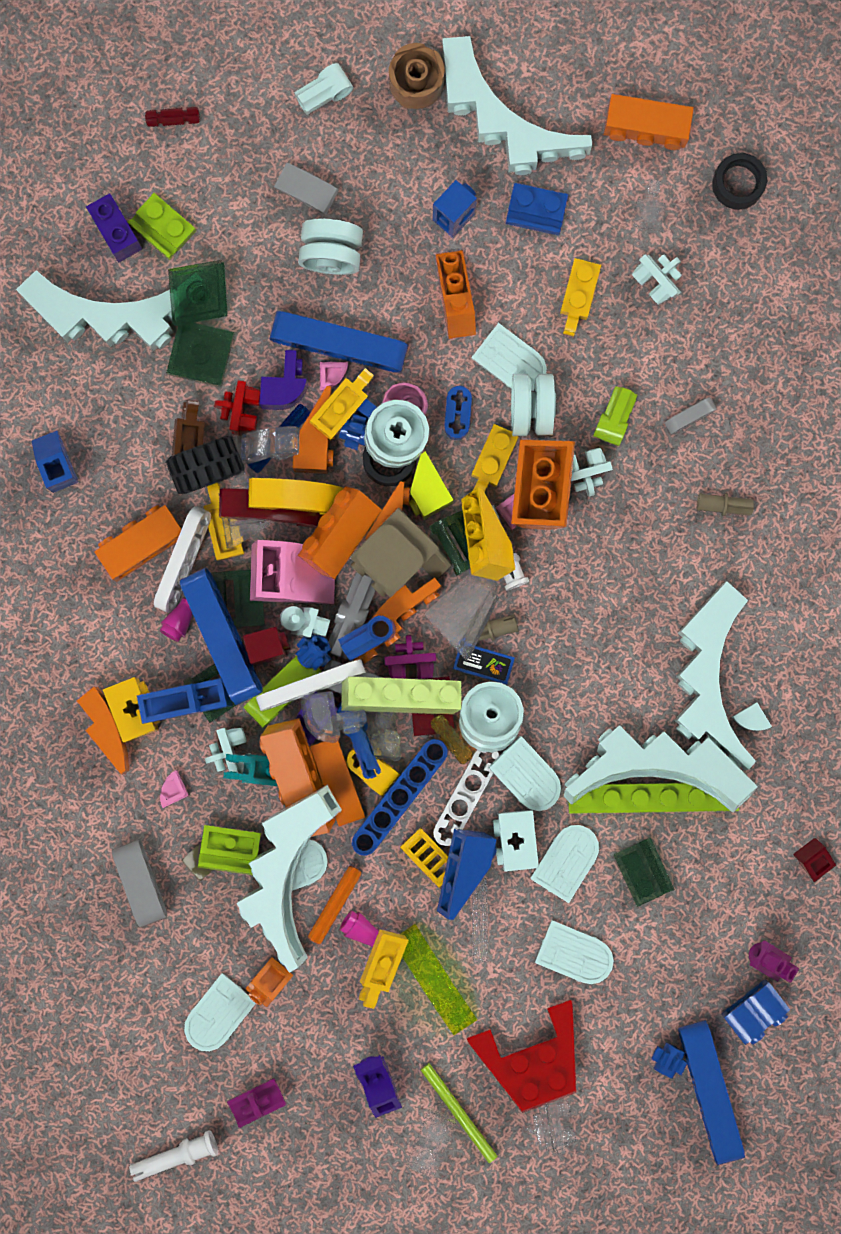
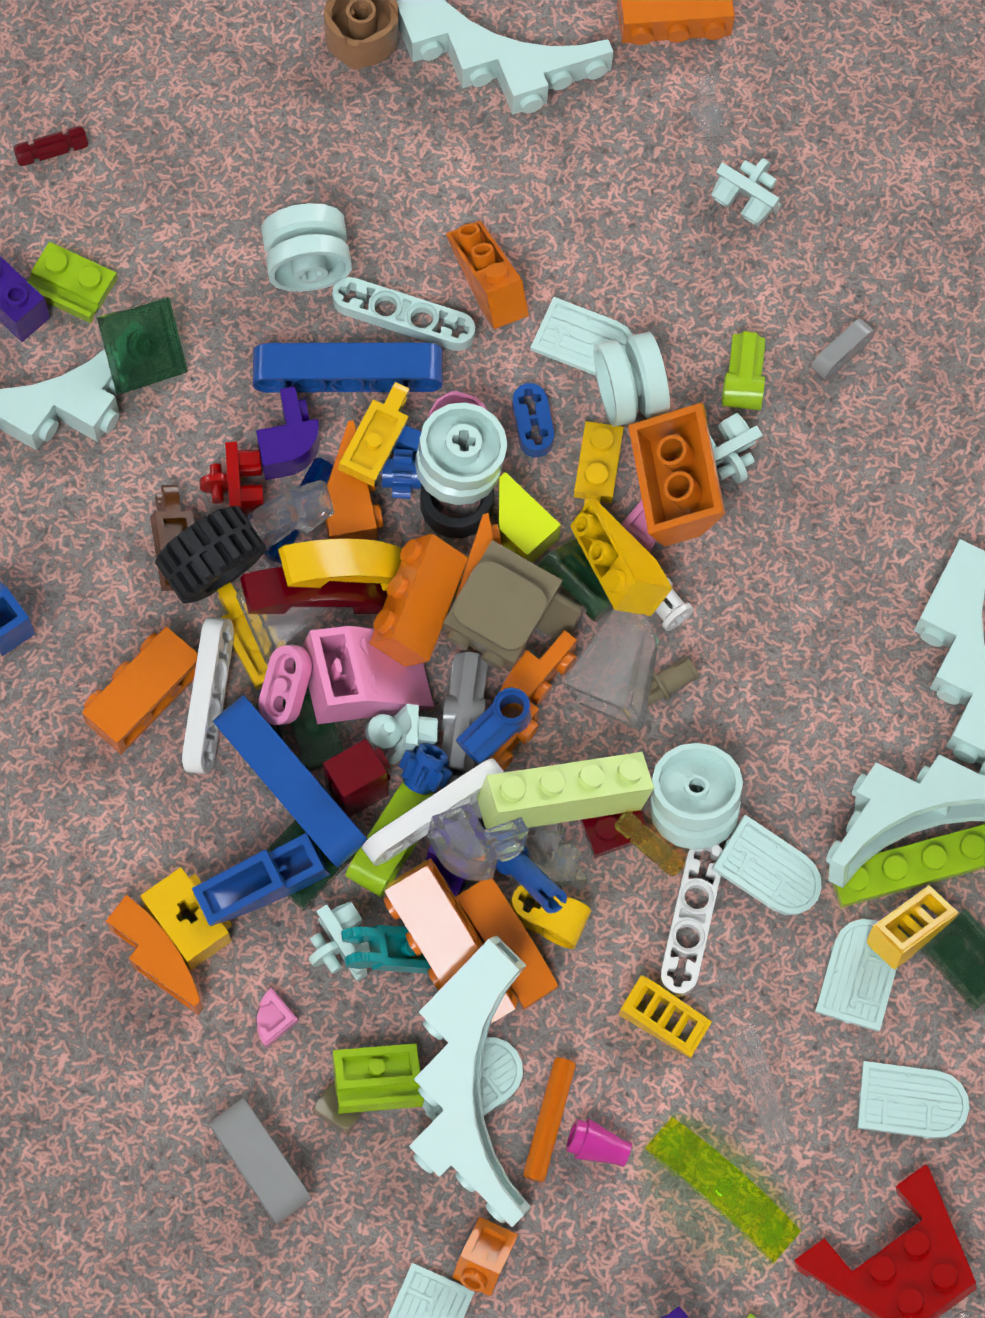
camera: 15 degrees left, 15 degrees down
(177, 621) = (221, 783): dark pink cone -> none
(200, 353) = (163, 427): clear green plate -> none
(235, 566) = (285, 683): none -> bright pink plate
(306, 188) = (252, 188): light grey slope -> none
(330, 85) = (250, 60): light aqua piece -> none
(332, 373) = (347, 409): bright pink tile -> none
(381, 966) = (642, 1185): yellow plate -> none
(386, 313) = (406, 307): none -> light aqua beam
(396, 811) = (604, 922): blue beam -> none
(424, 662) = (561, 746): magenta hips -> none
(454, 208) = (456, 164): blue brick -> none
(466, 866) = (721, 1011): blue slope -> none
(486, 665) = (663, 733): tile -> none
(523, 825) = (784, 936): light aqua brick -> none
(536, 209) = (562, 148): blue plate -> none
(579, 293) = (649, 237): yellow plate -> none
(589, 850) = (893, 944): none -> yellow slope
(725, 504) = (923, 449): dark tan axle -> none
(752, 164) = (814, 30): black tyre -> none

